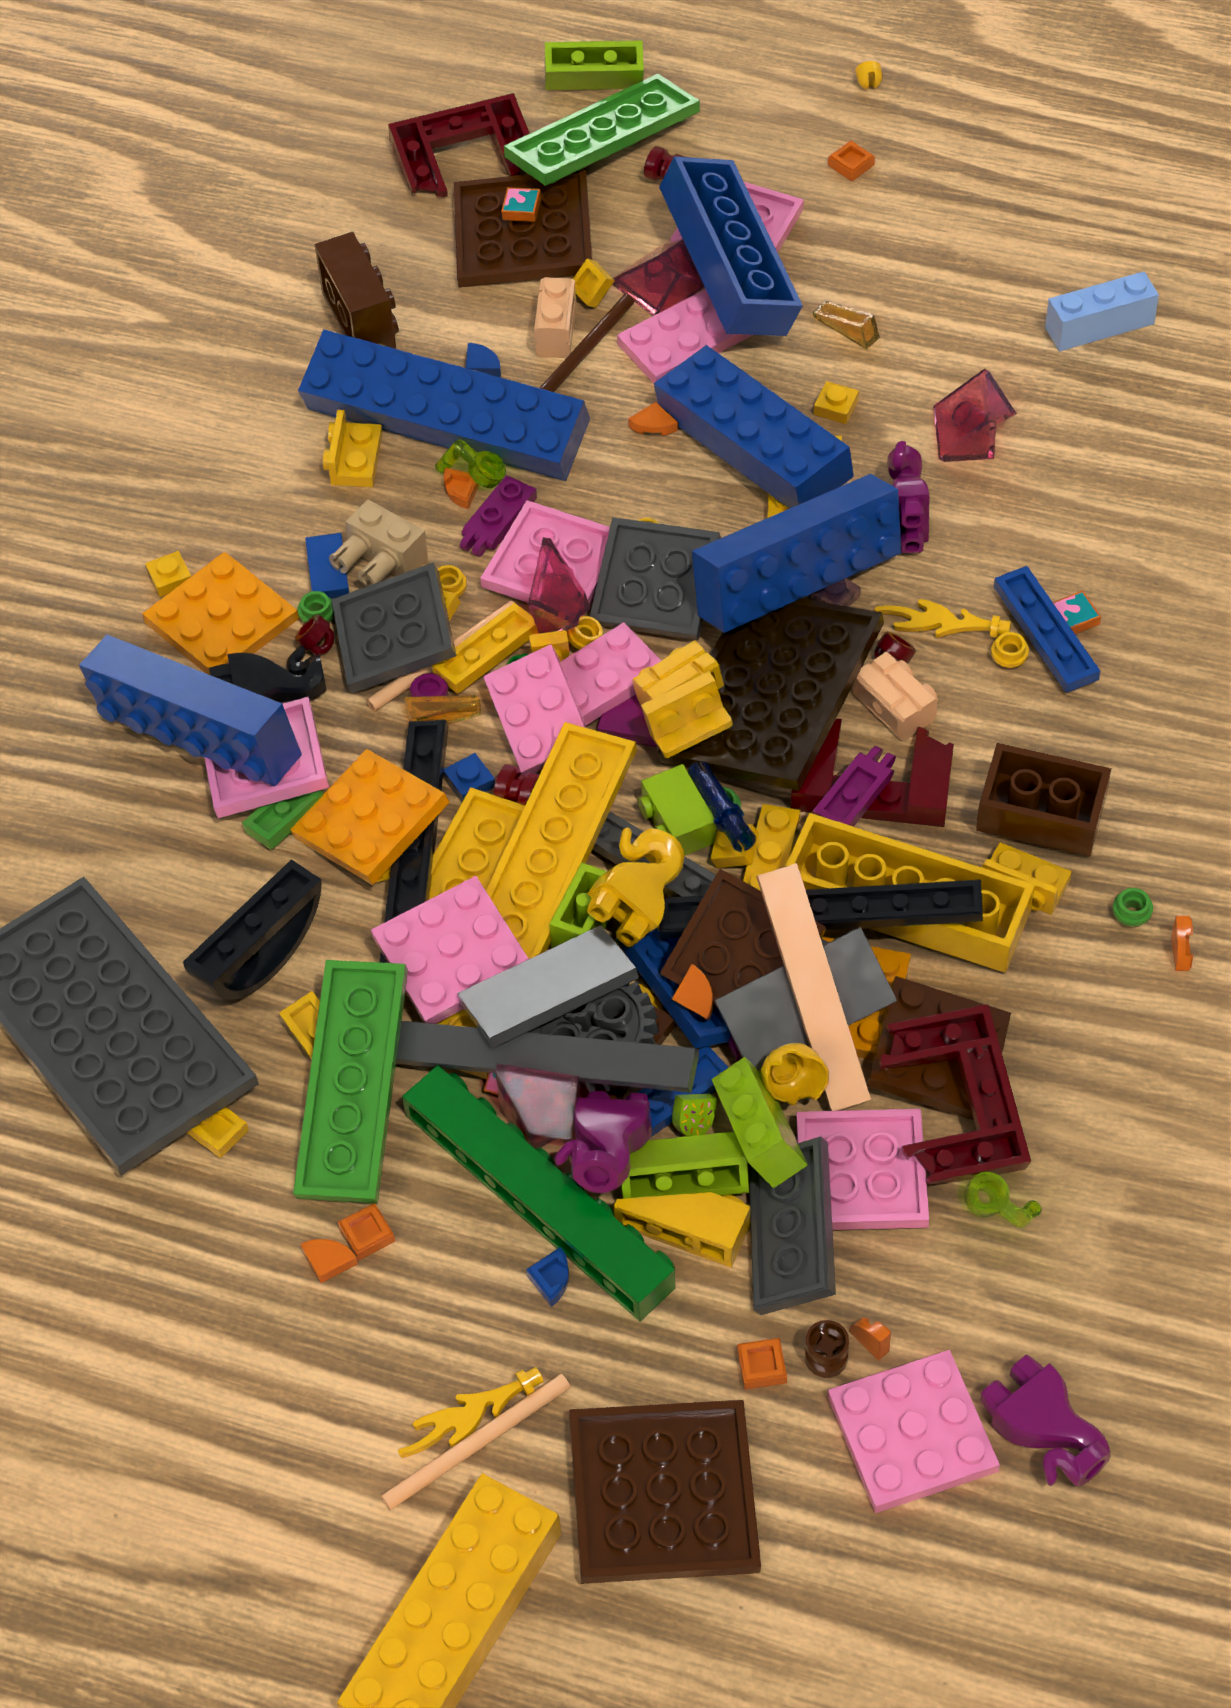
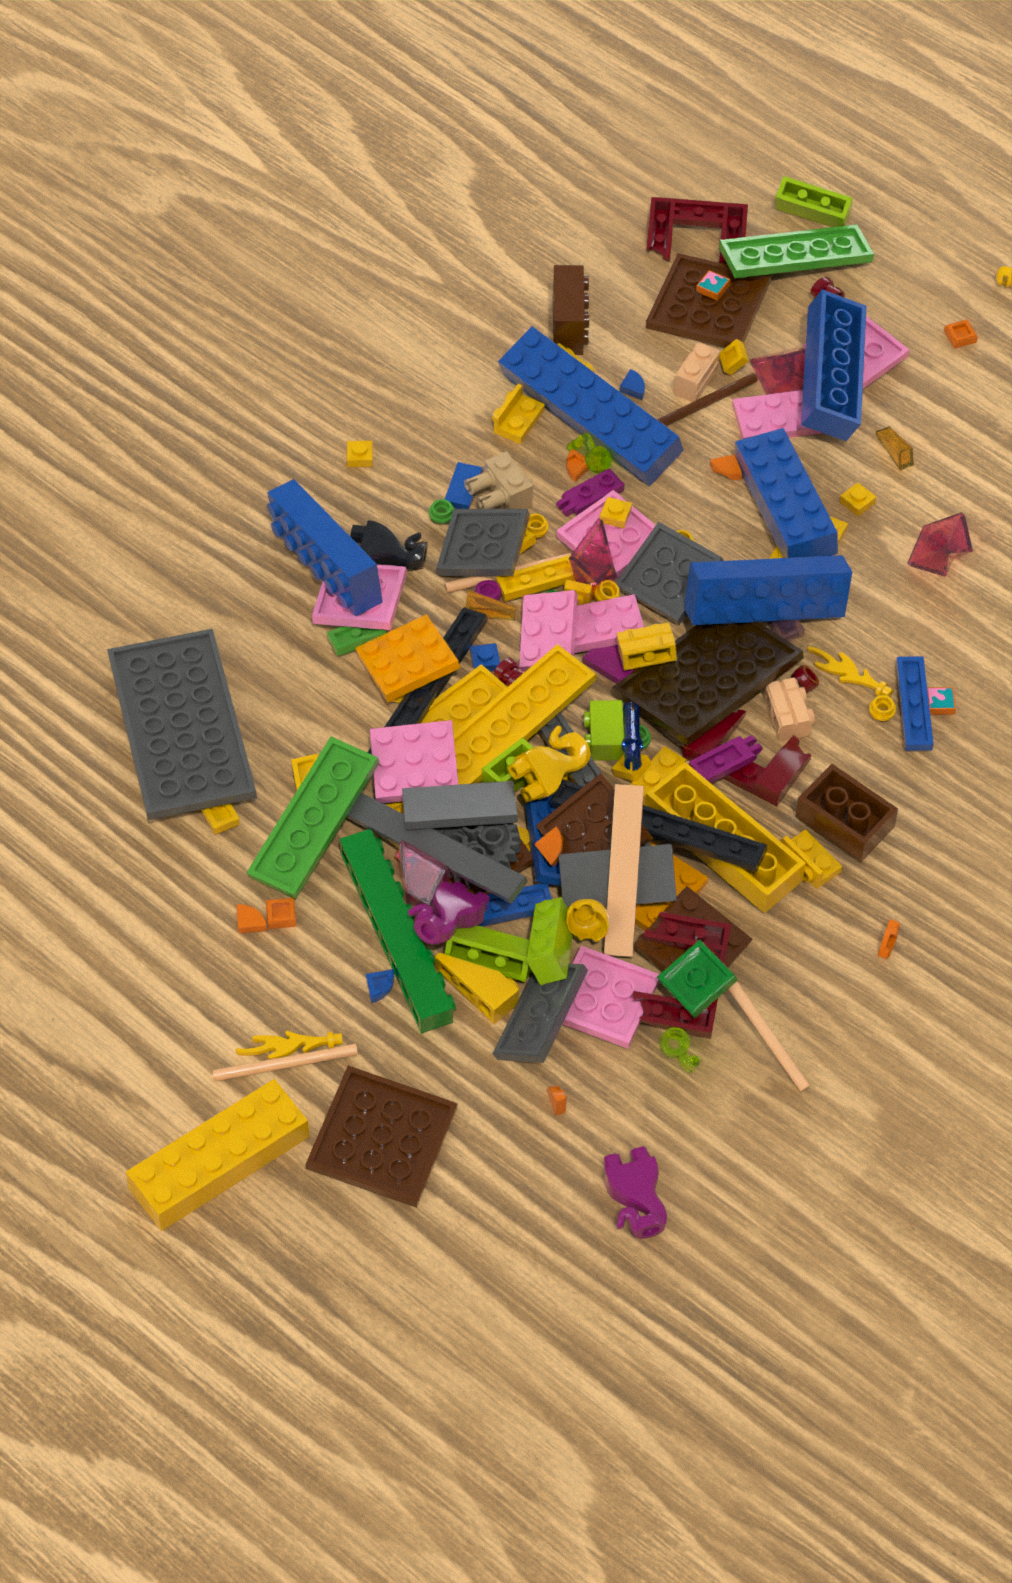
camera: 20 degrees right, 0 degrees up
(220, 614) = (379, 492): light orange plate -> none
(258, 935) = (298, 706): black window -> none
(312, 632) = (430, 526): dark red tile -> none
(547, 524) = (616, 512): none -> yellow plate
(686, 715) = (638, 669): yellow bracket -> none
(694, 1113) = (516, 921): lime tile -> none
(762, 1363) = (481, 1087): orange tile -> none
(831, 1340) = (520, 1088): reddish brown wheel -> none
(913, 1431) = (552, 1164): bright pink plate -> none
(914, 498) = (866, 581): magenta hips -> none
(982, 1095) = (697, 978): none -> green tile
(1095, 1128) = (769, 1037): none -> light nougat piece
(1136, 899) = (872, 898): bright green plate -> none

